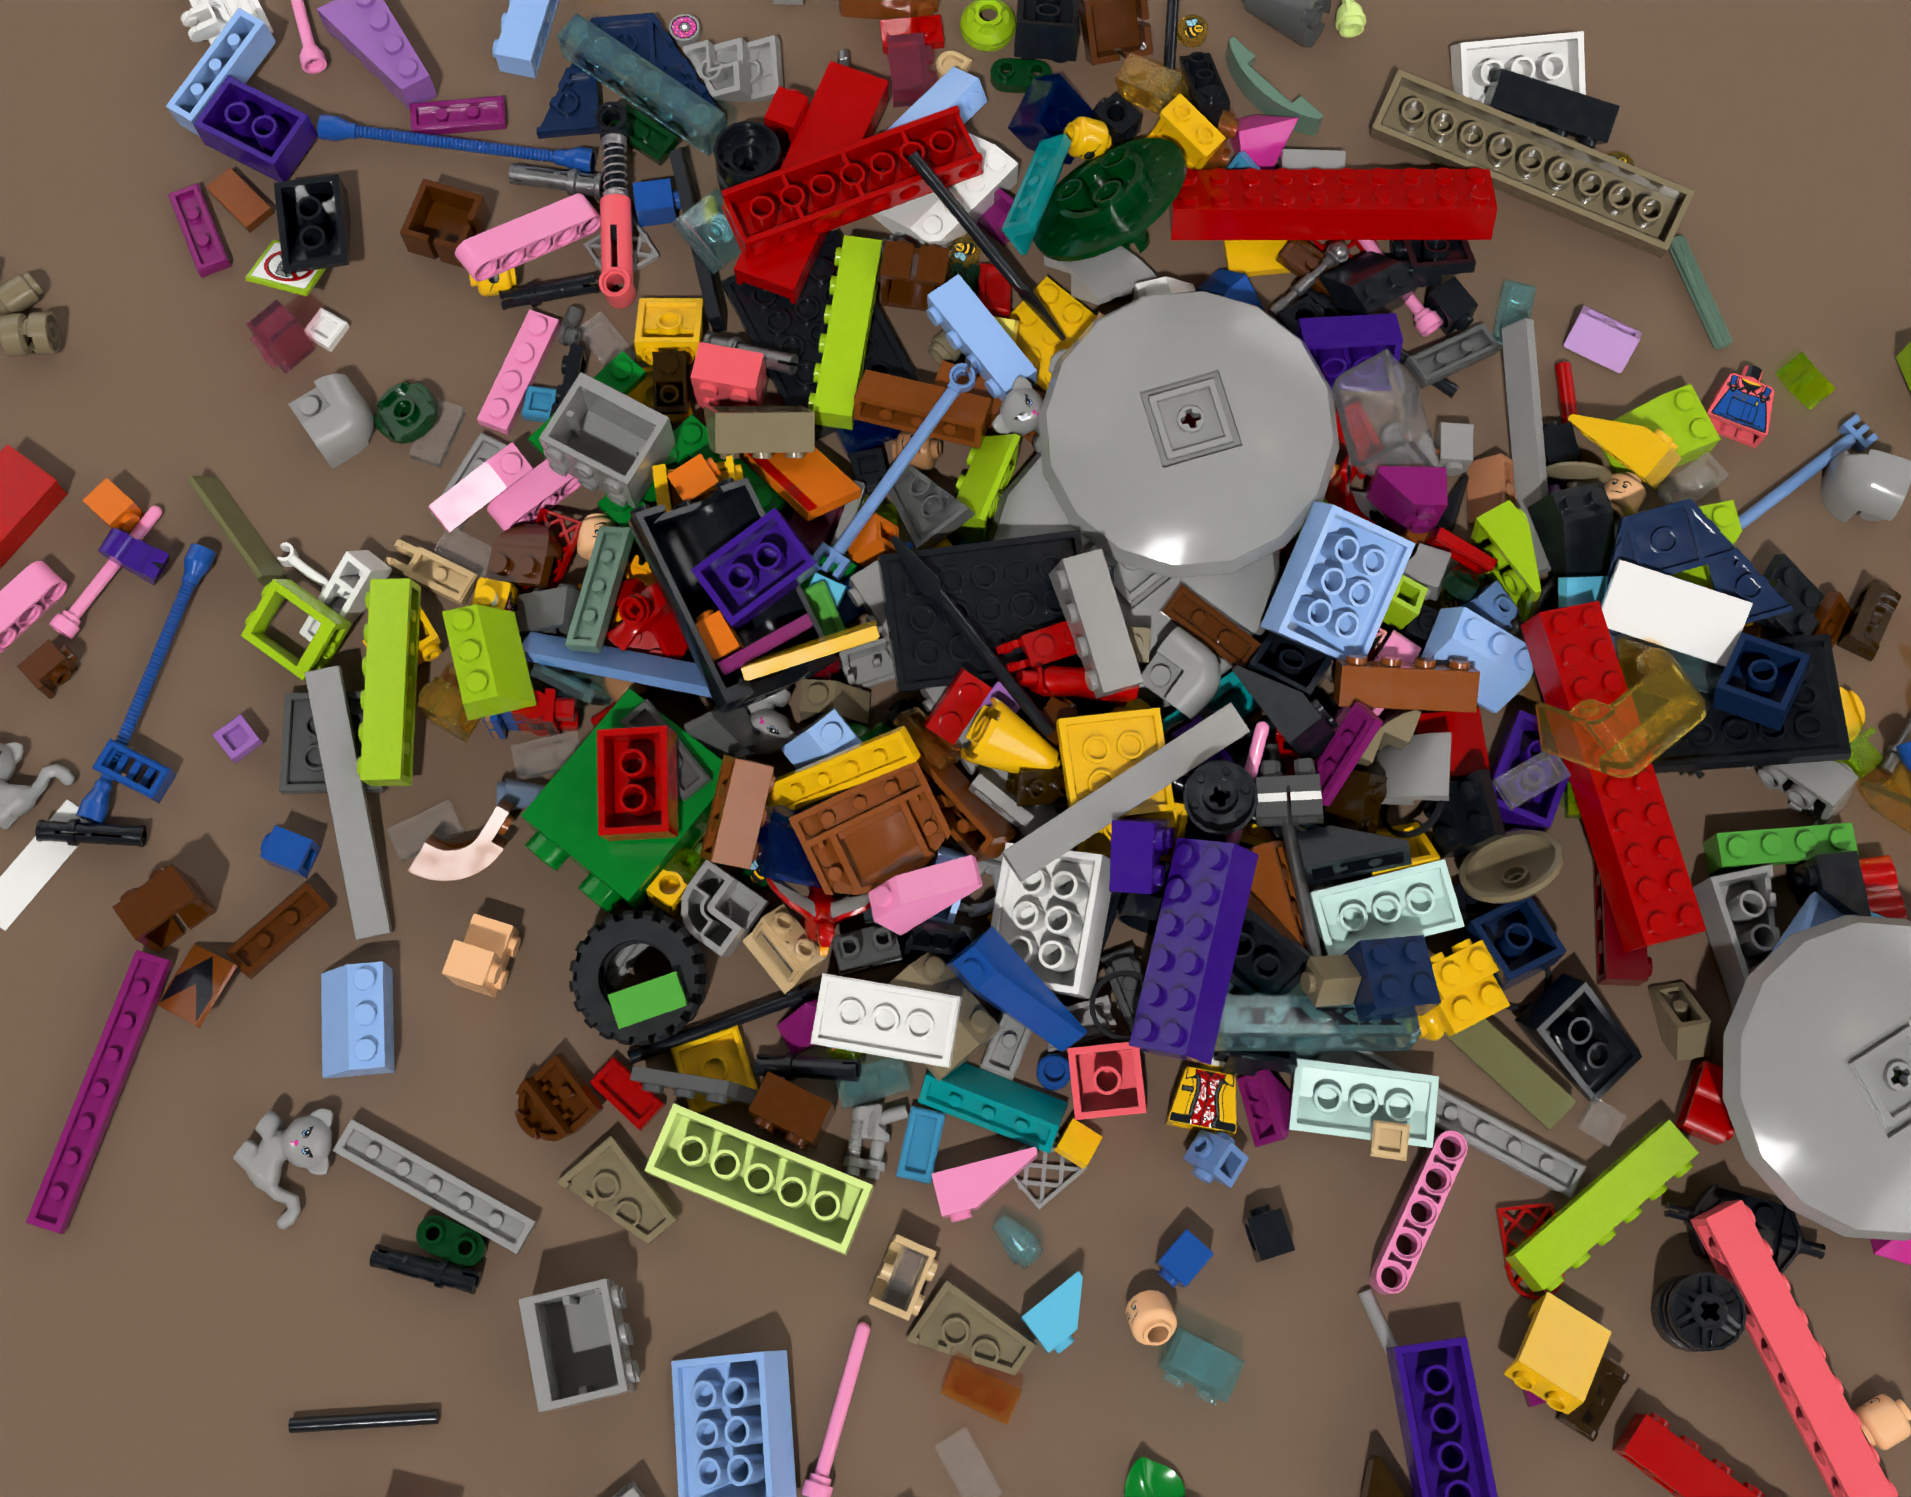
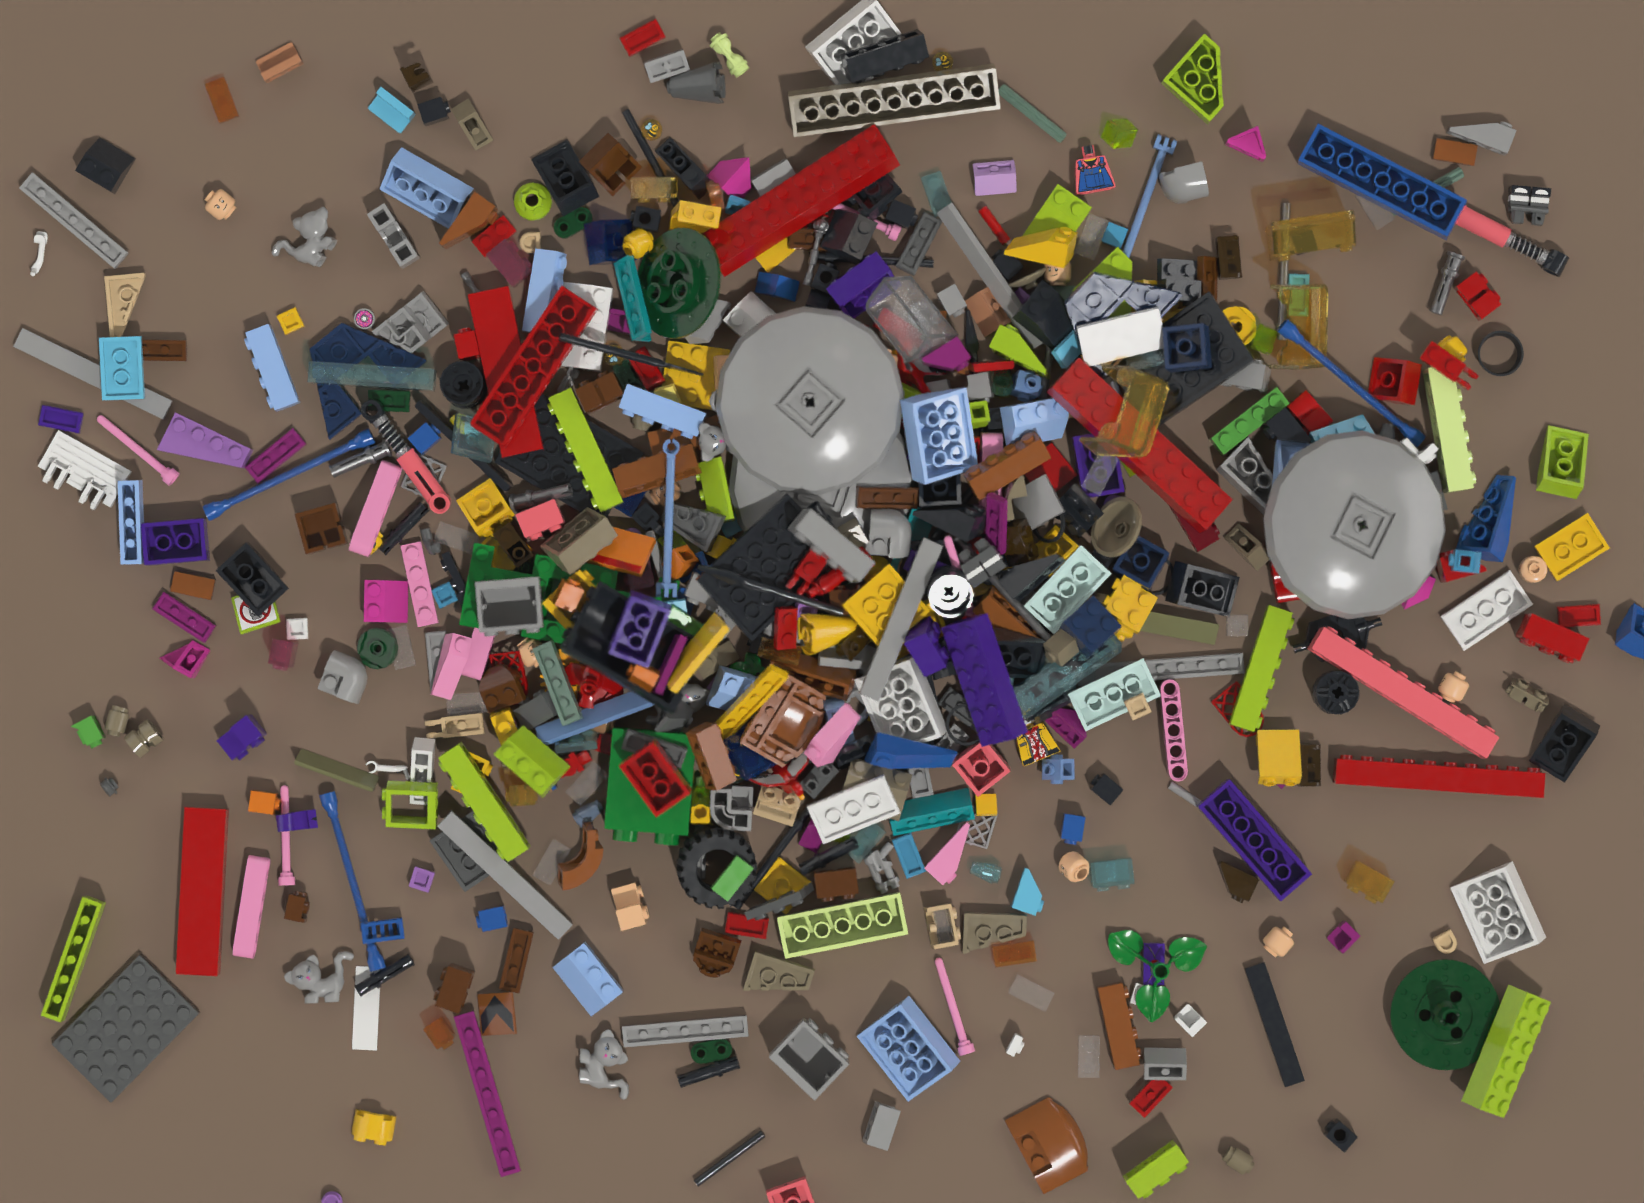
camera: 30 degrees left, 15 degrees up
(101, 960) = (440, 1033): none -> clear orange brick
(152, 407) = (241, 737): none -> dark purple brick
(164, 281) = (187, 659): none -> dark pink slope
(458, 361) = (386, 601): none -> dark pink slope
(1053, 1072) = (950, 777): blue tile -> none
(1264, 95) = (746, 147): sand green slope -> none
(1725, 492) = (1114, 235): none -> dark azure tile

